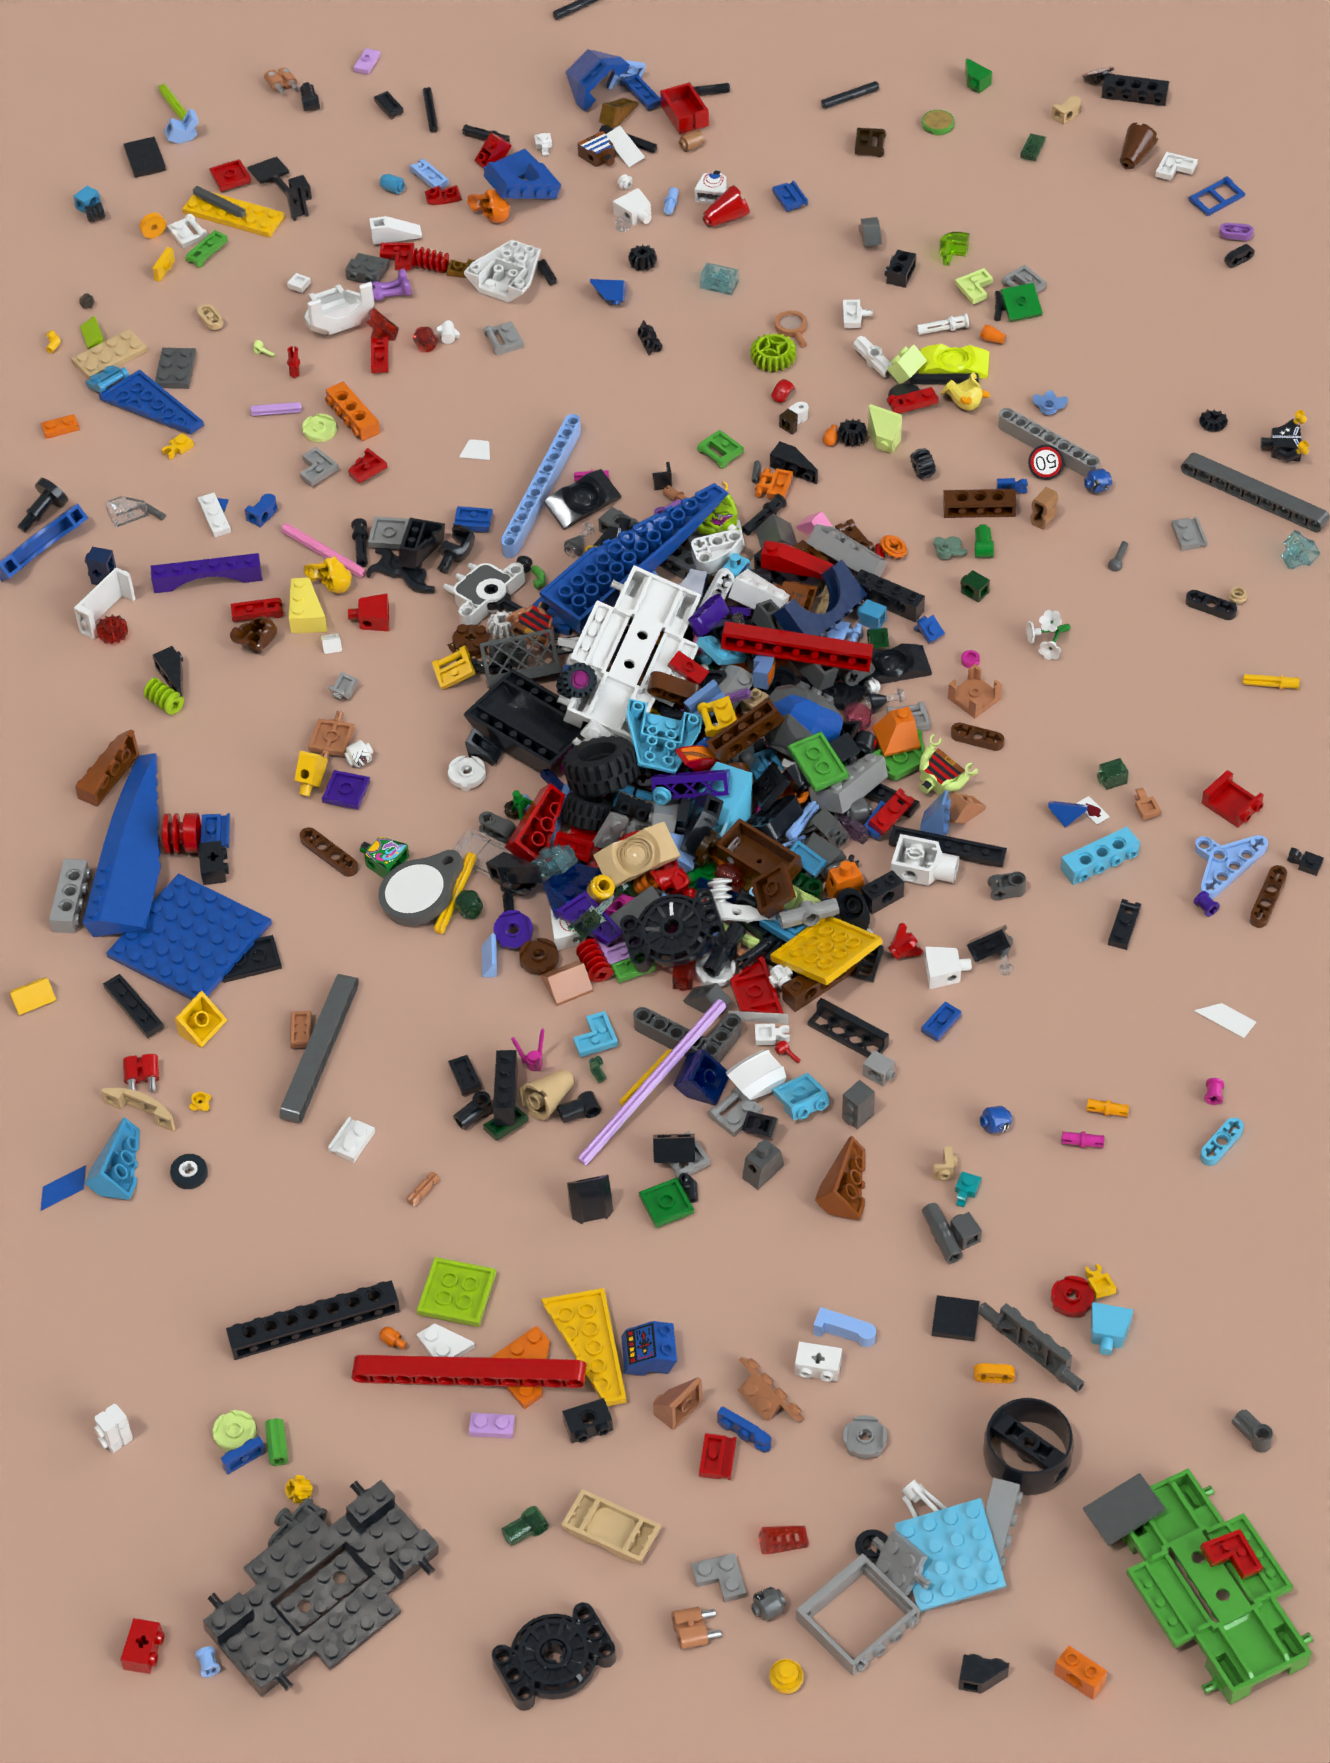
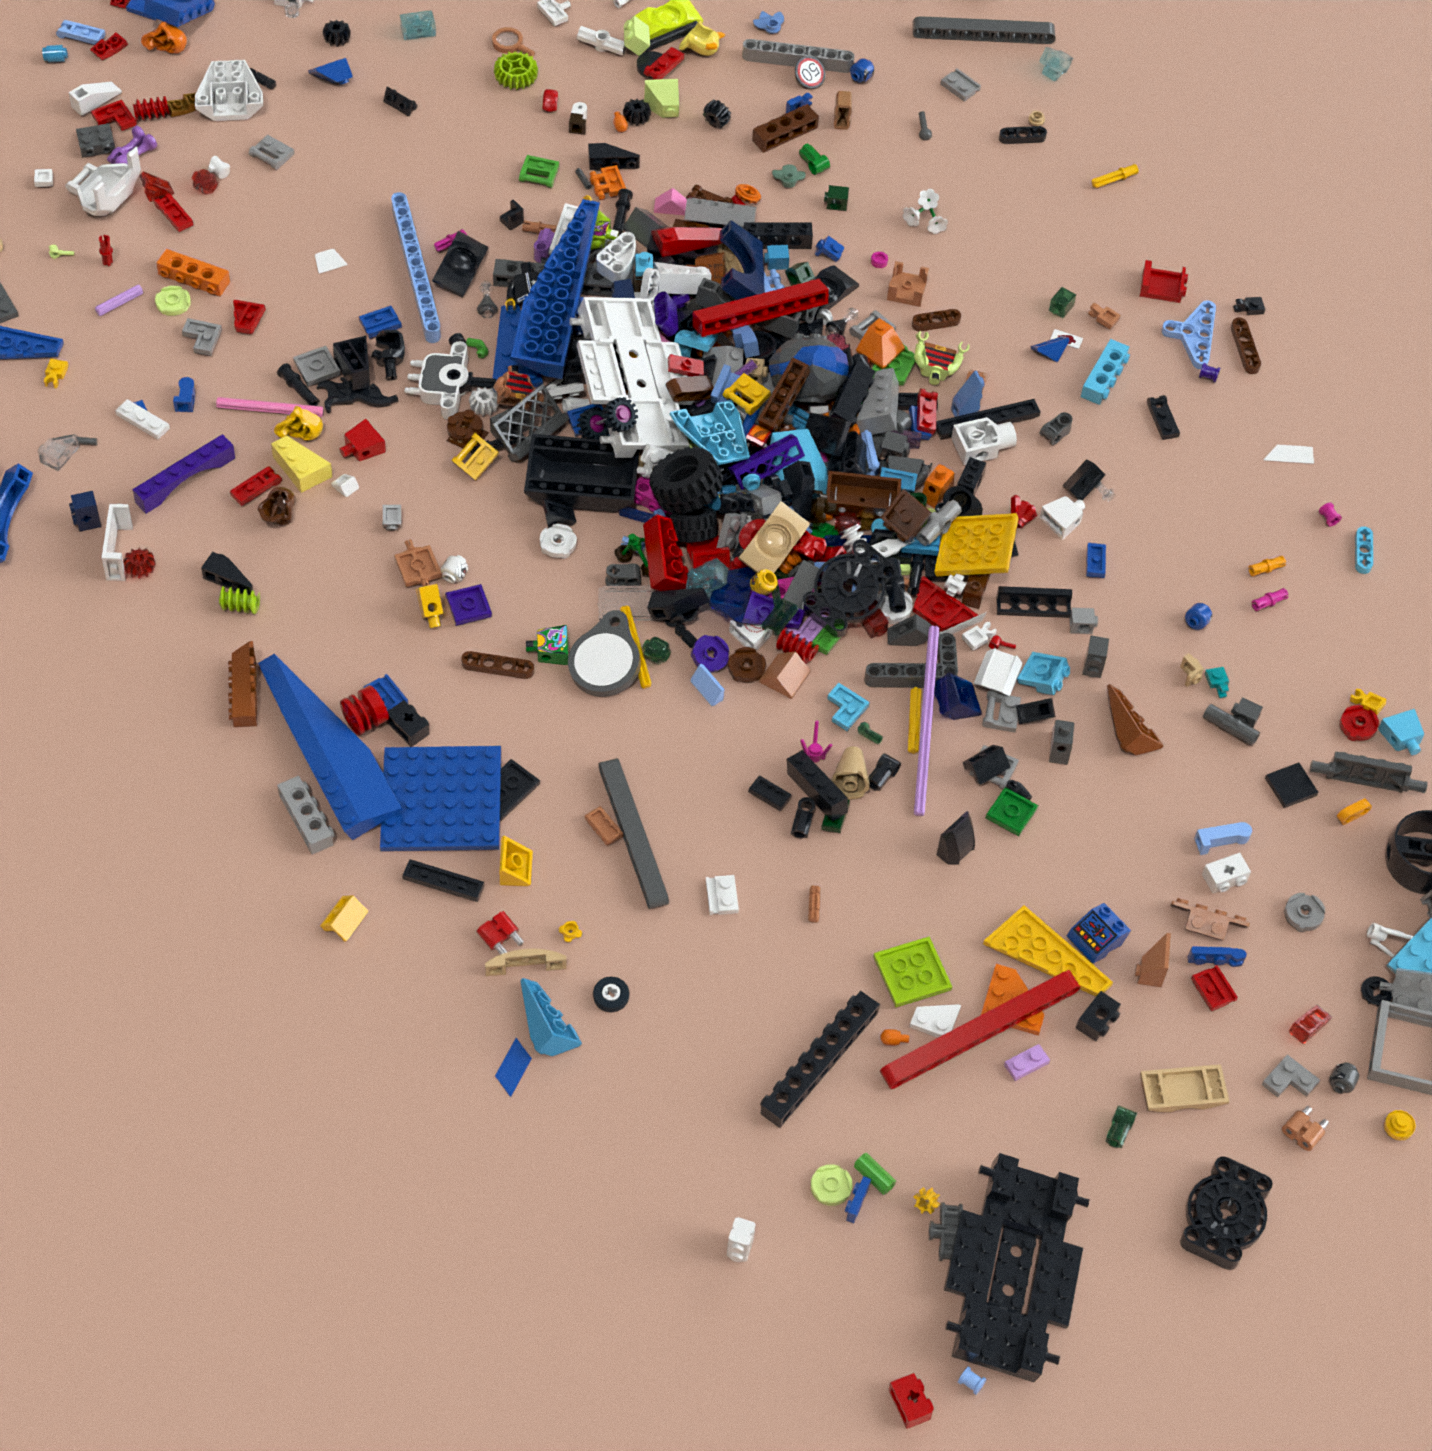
camera: 40 degrees left, 5 degrees up
(818, 761) = (855, 394): bright green tile -> none

